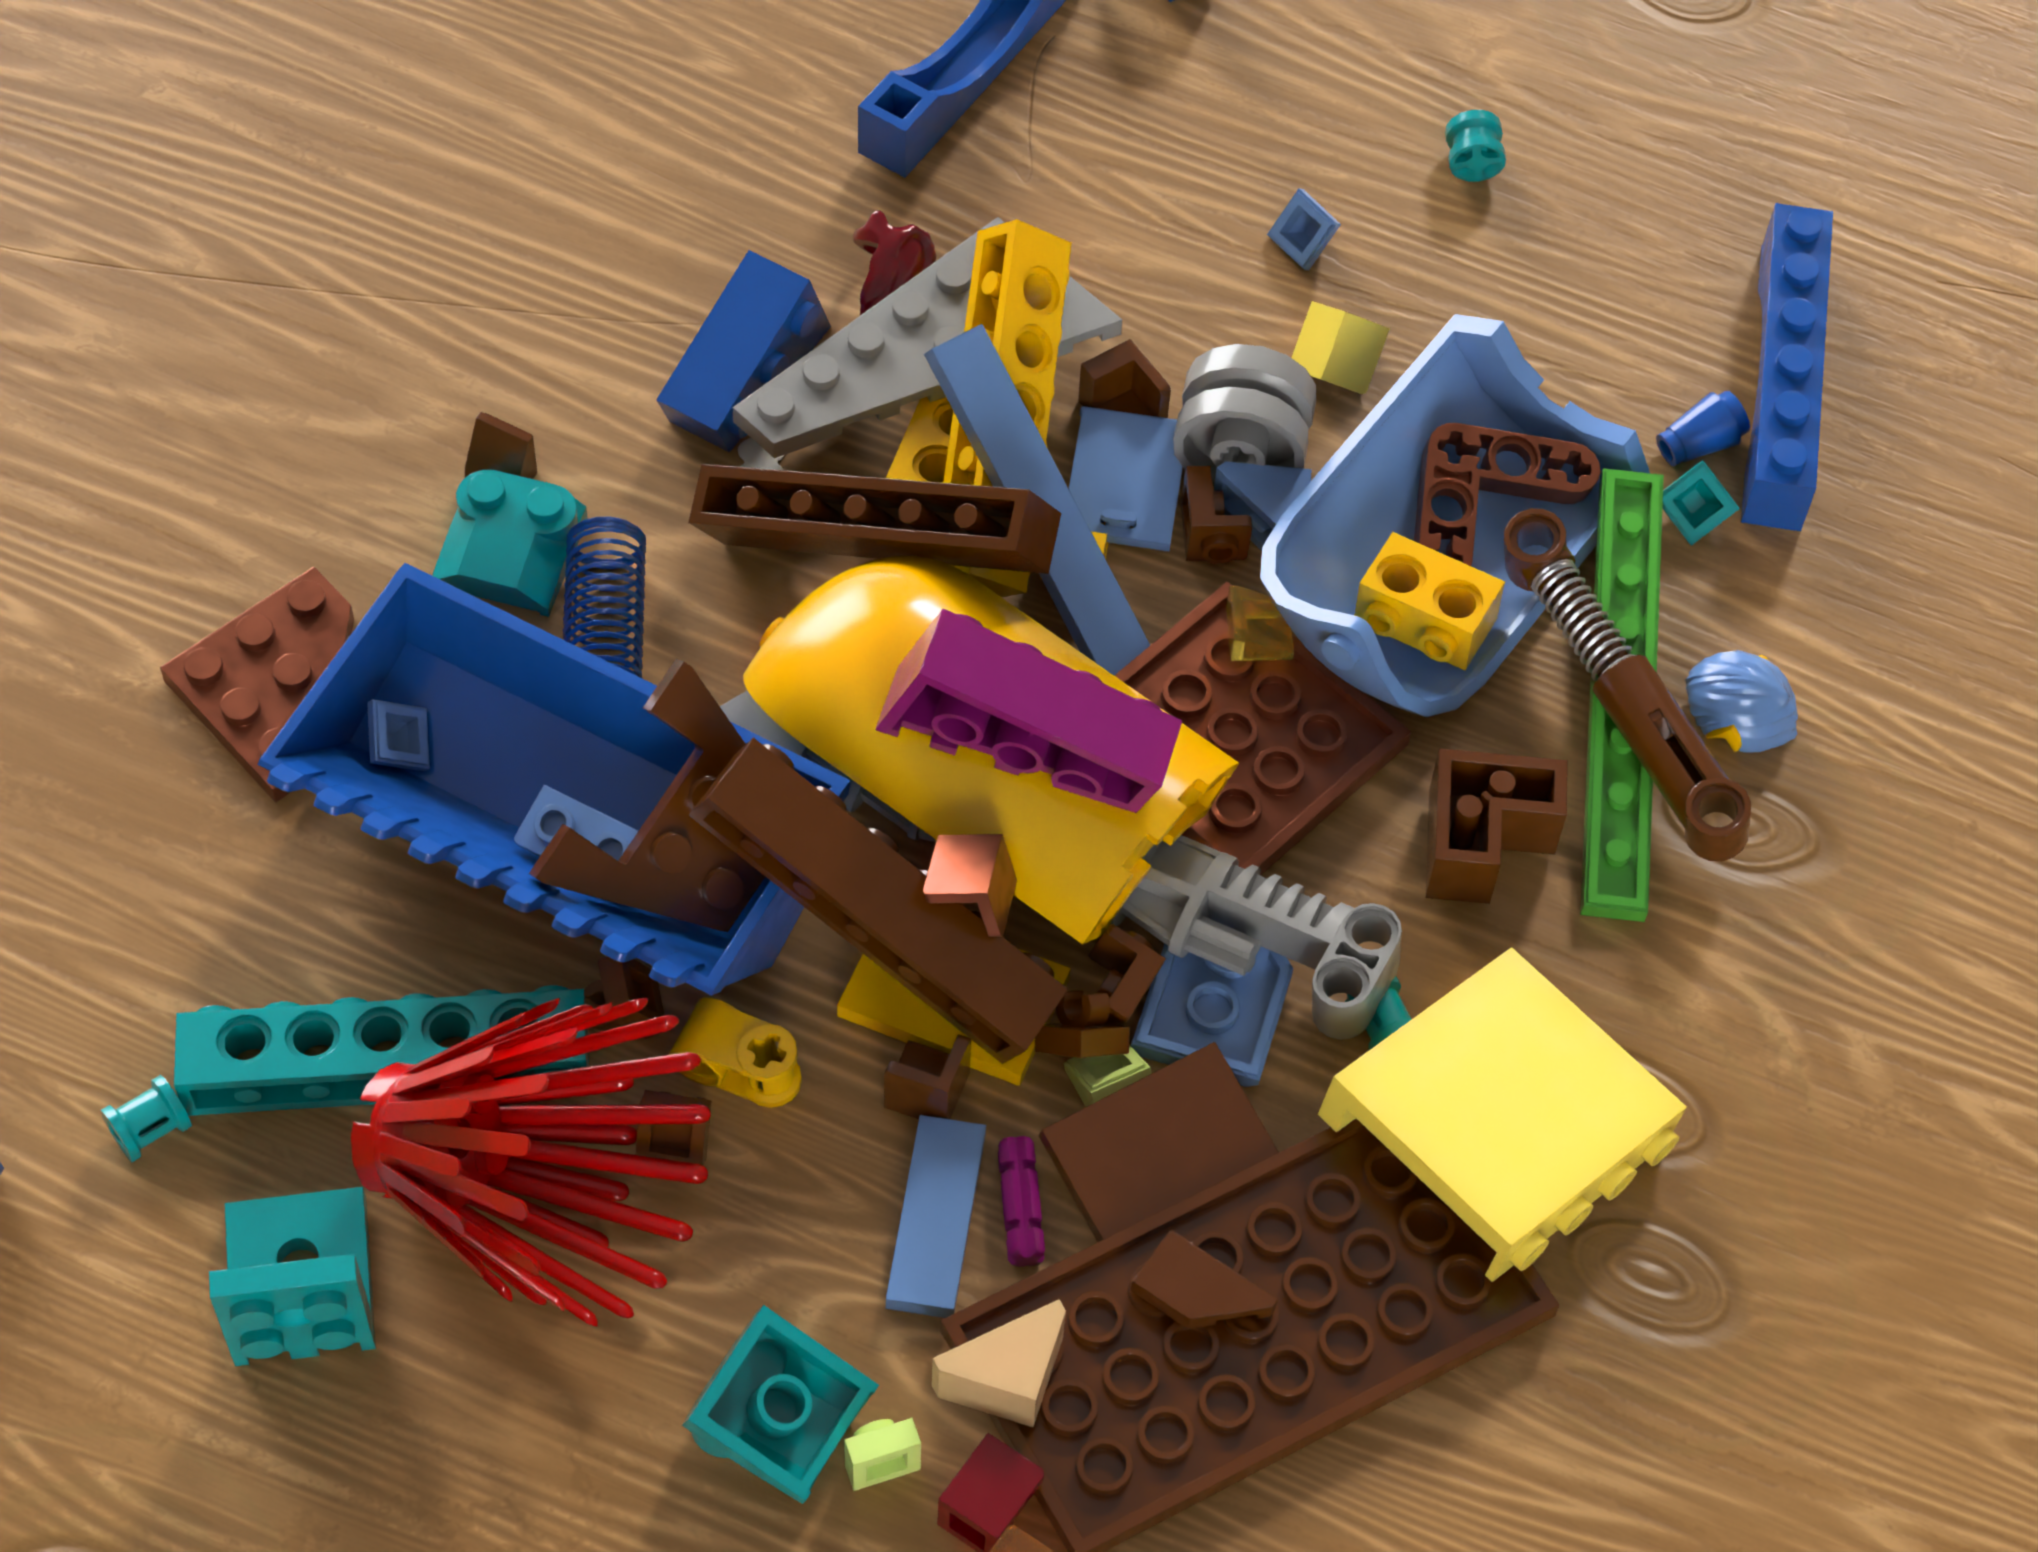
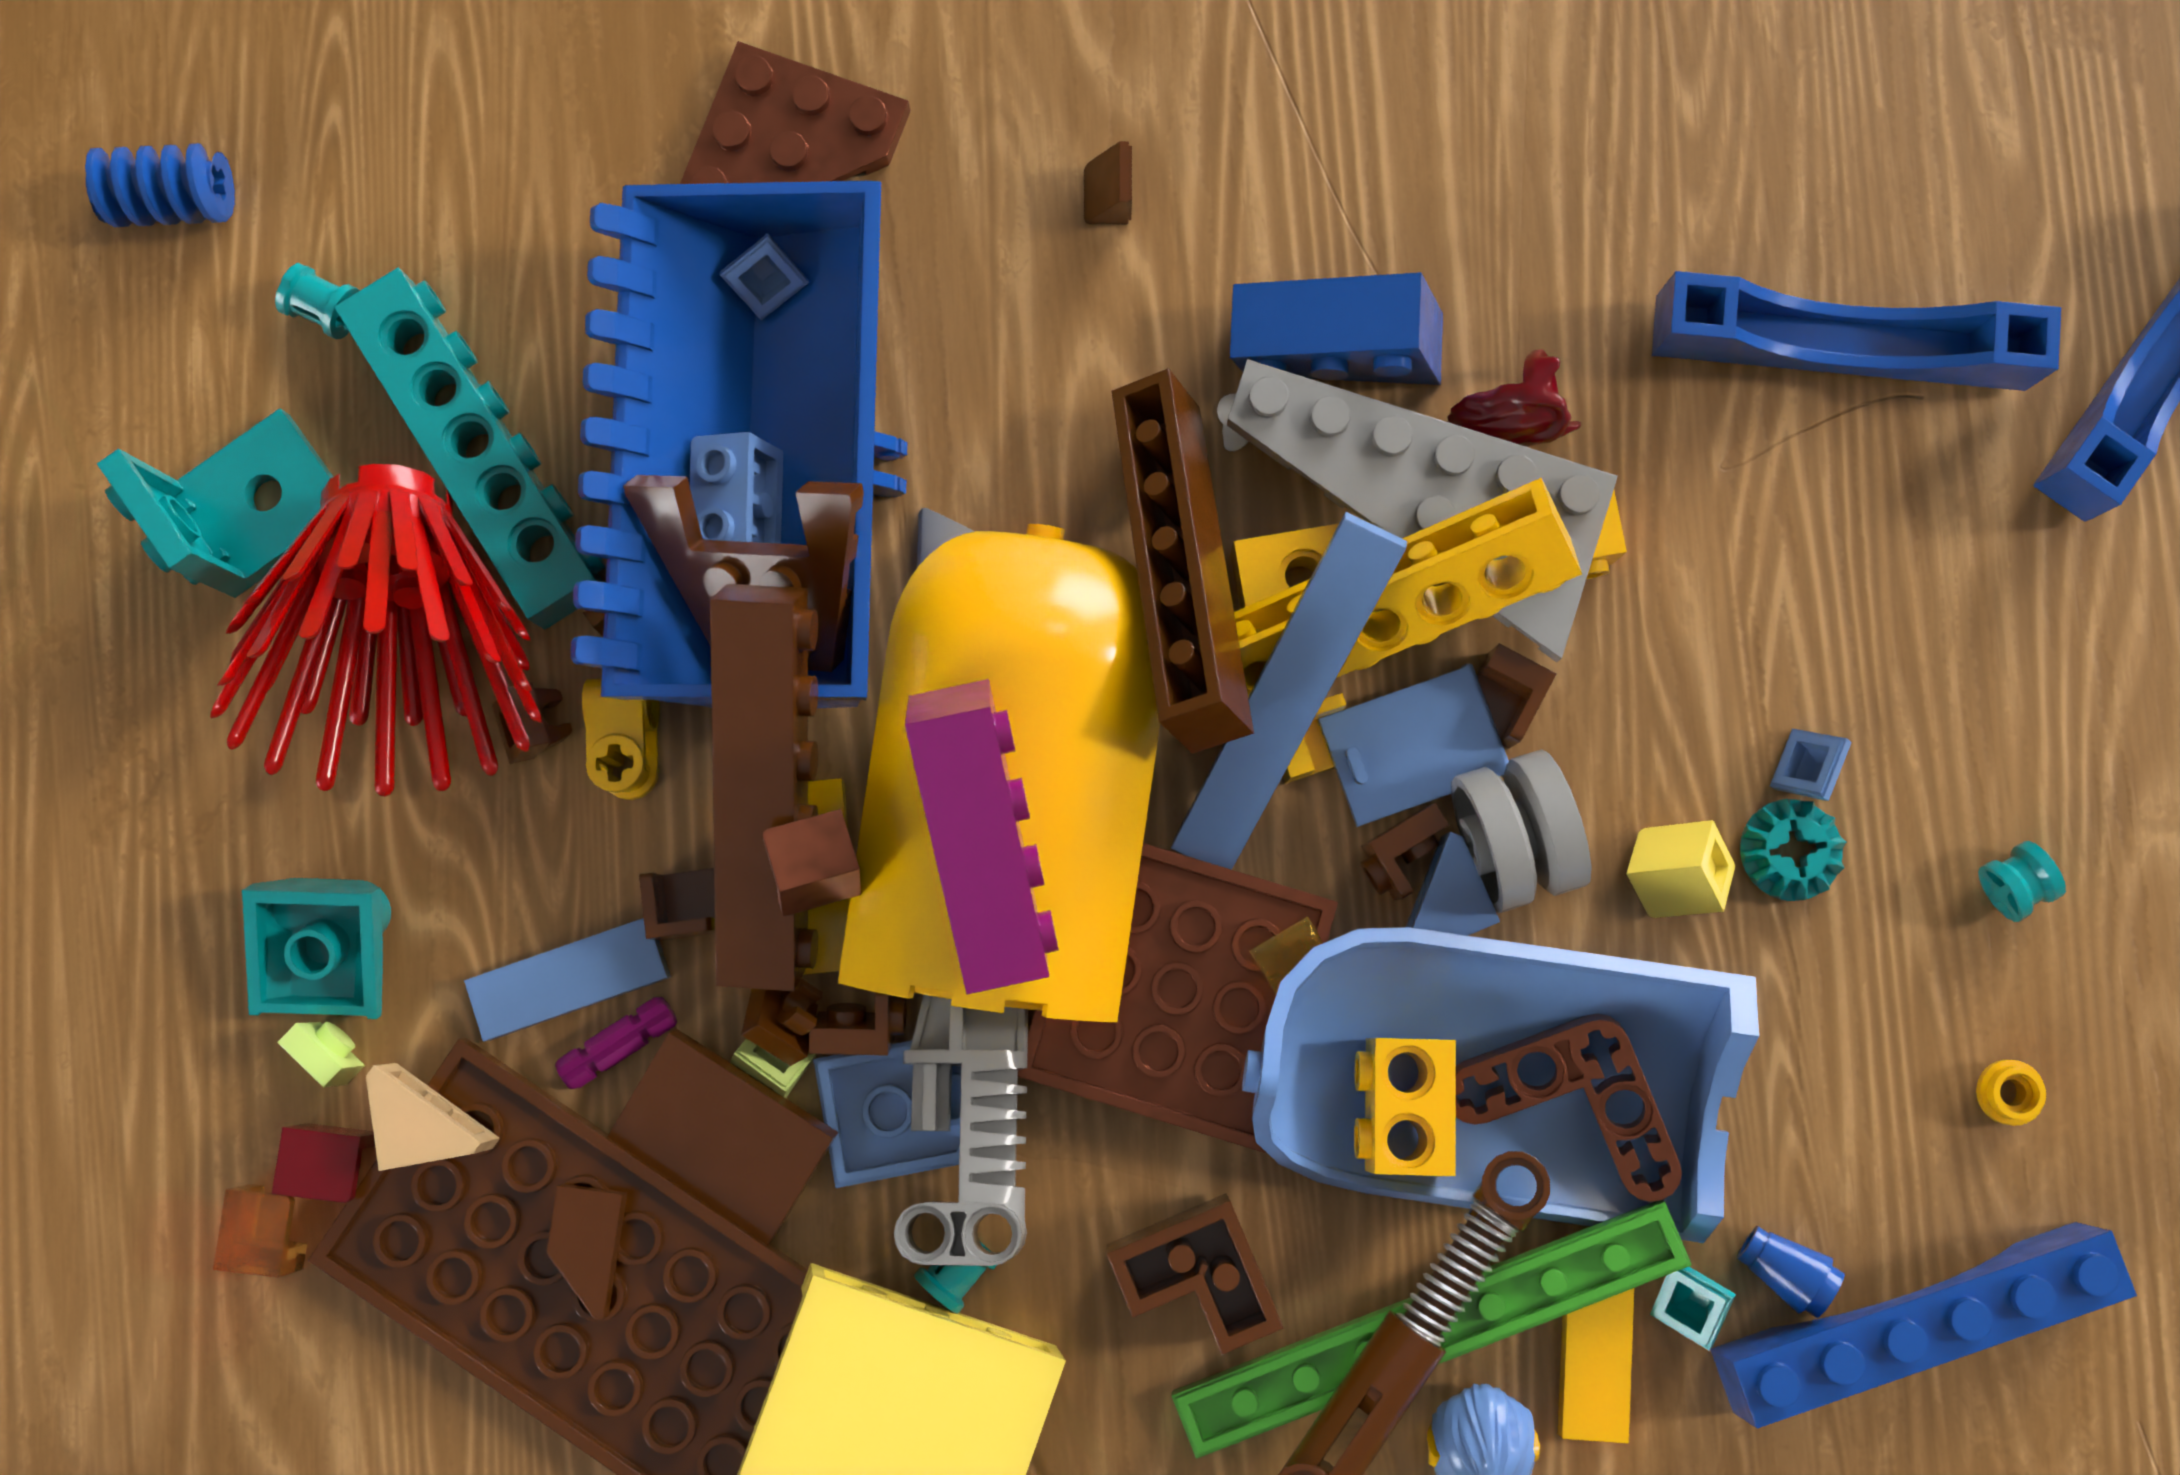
camera: 70 degrees right, 25 degrees up
(509, 539) = (1030, 247): teal slope -> none
(617, 525) = (1063, 331): blue piece -> none
(1378, 294) = (1778, 874): none -> teal gear
(1637, 231) = (2029, 1092): none -> yellow plate
(1717, 598) = (1597, 1371): none -> yellow tile

